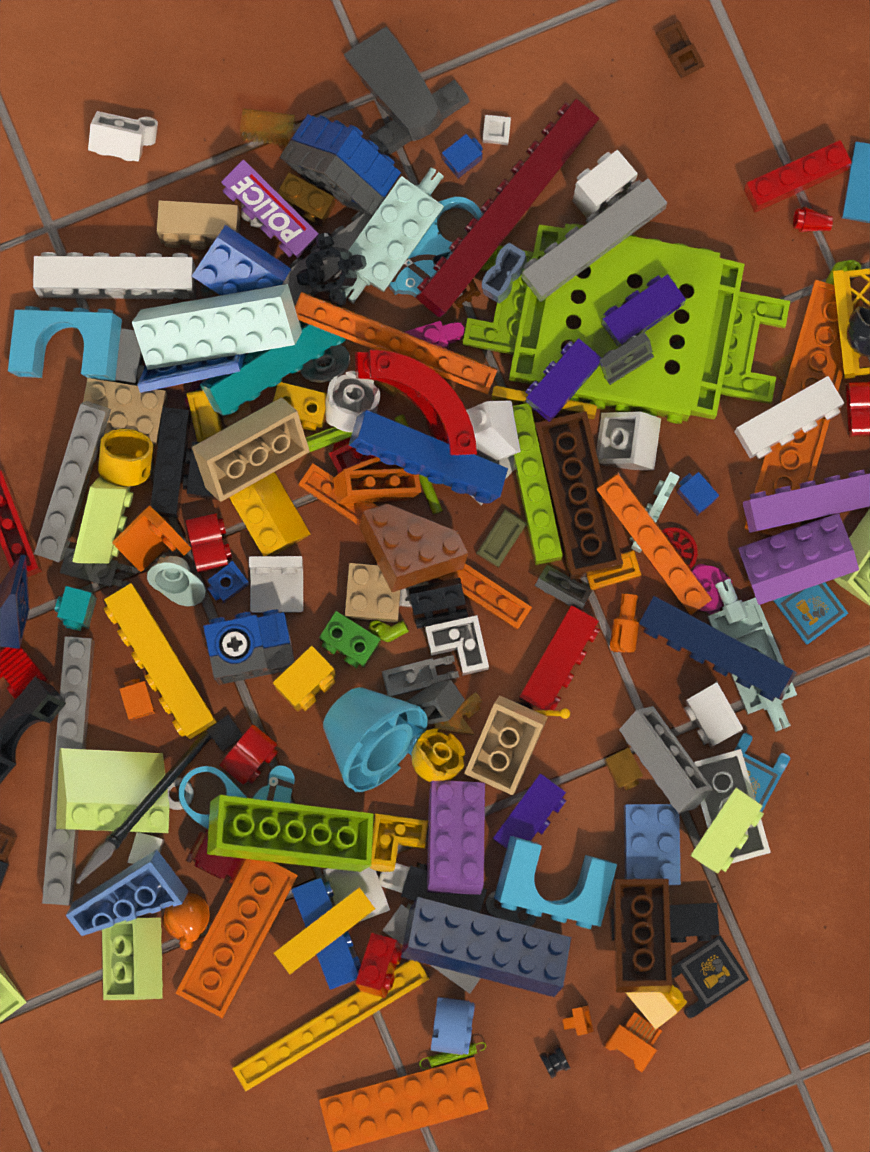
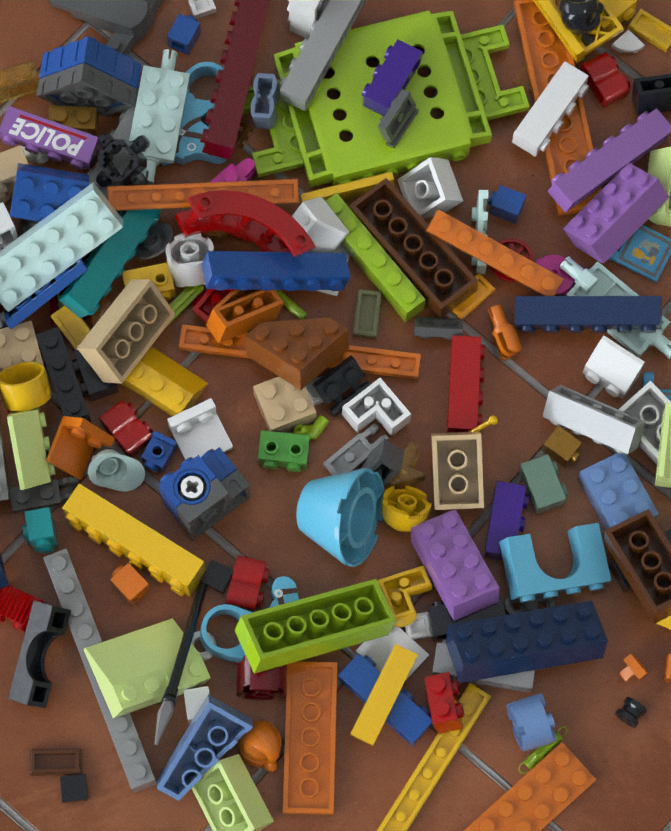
camera: 25 degrees left, 10 degrees down
(305, 680) = (263, 495): yellow brick -> none
(562, 379) = (354, 159): dark purple brick -> none
(584, 797) = (543, 484): none -> sand green brick

